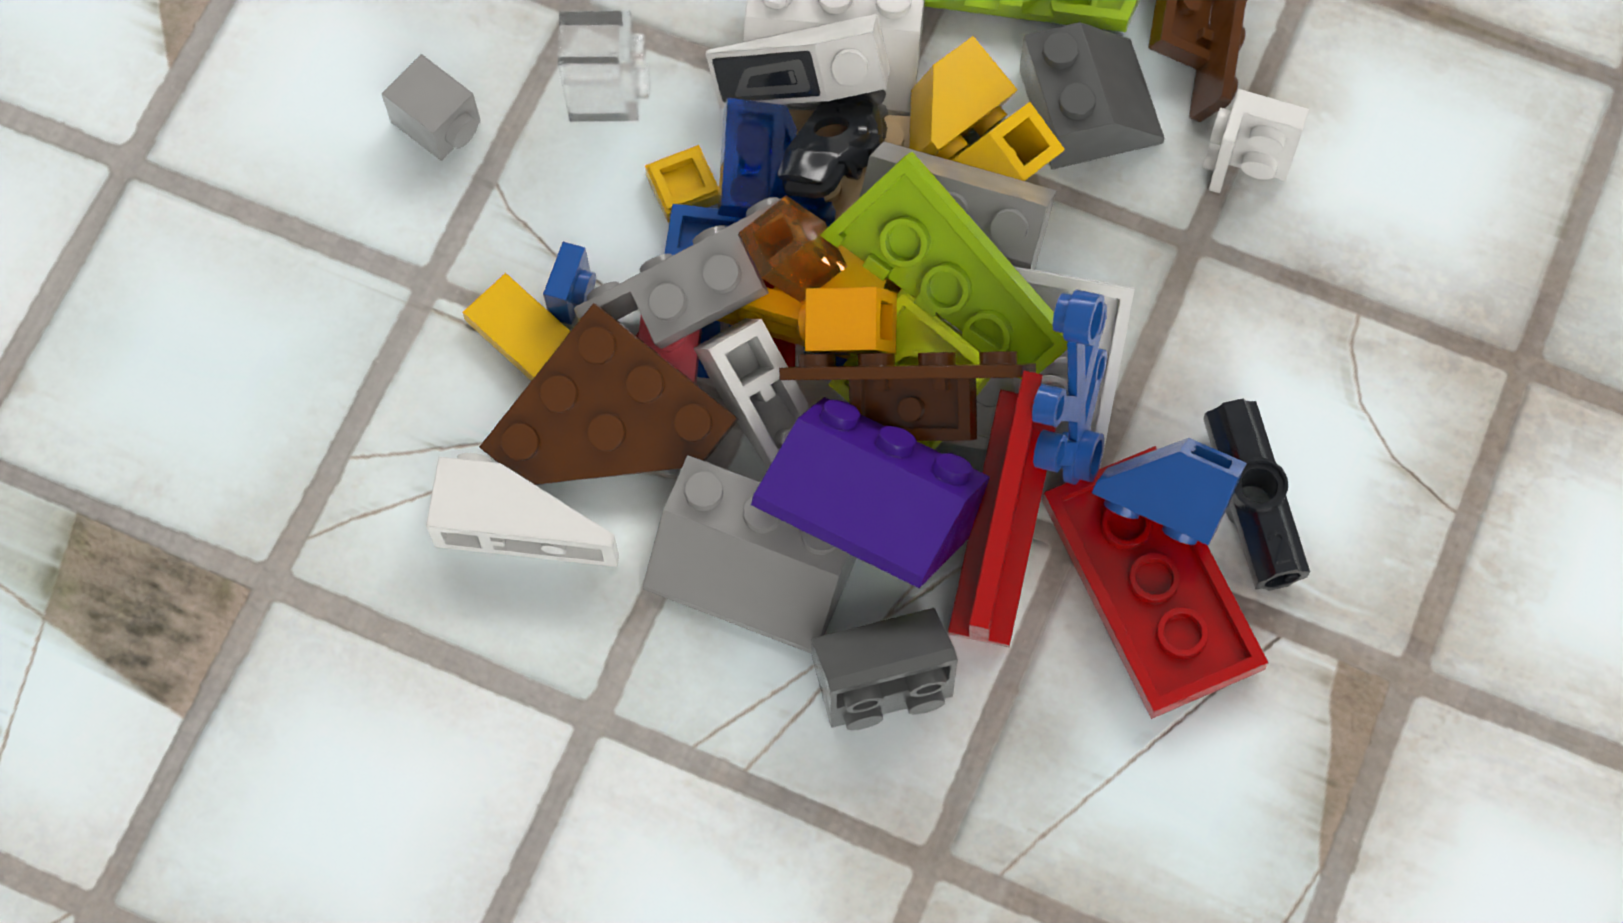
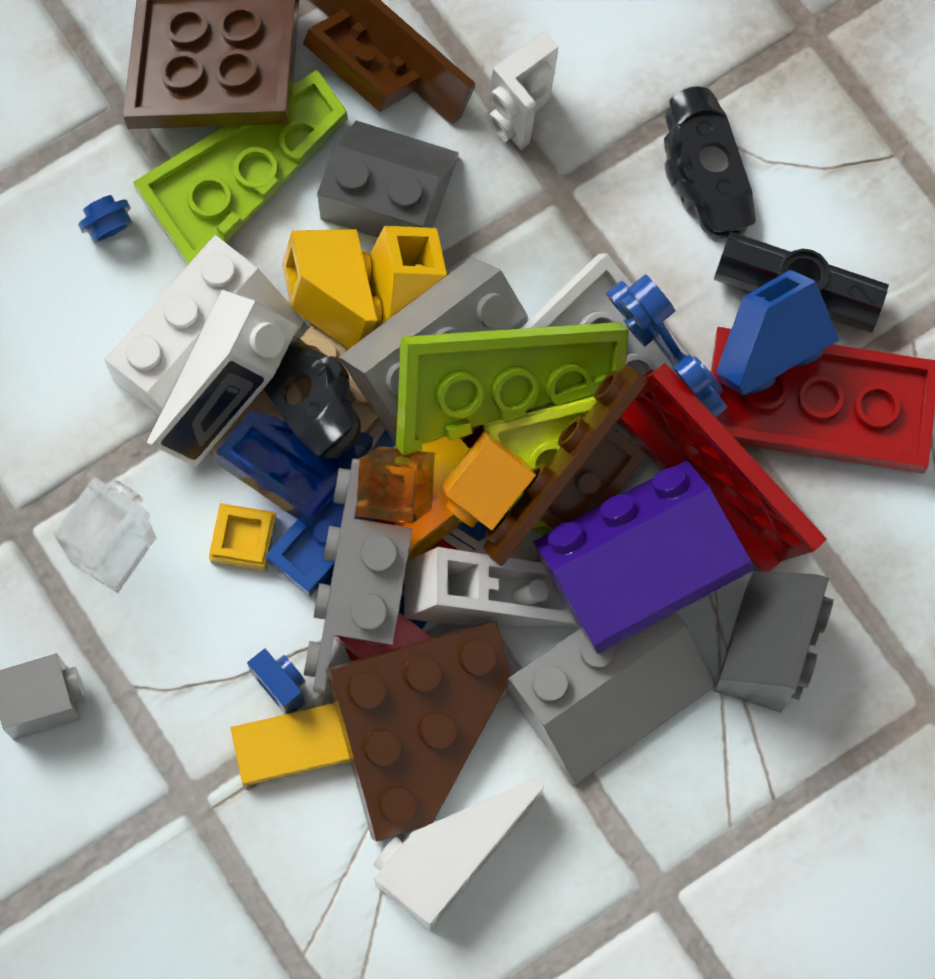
camera: 60 degrees left, 5 degrees up
(1286, 377) = (719, 198): none -> black piece

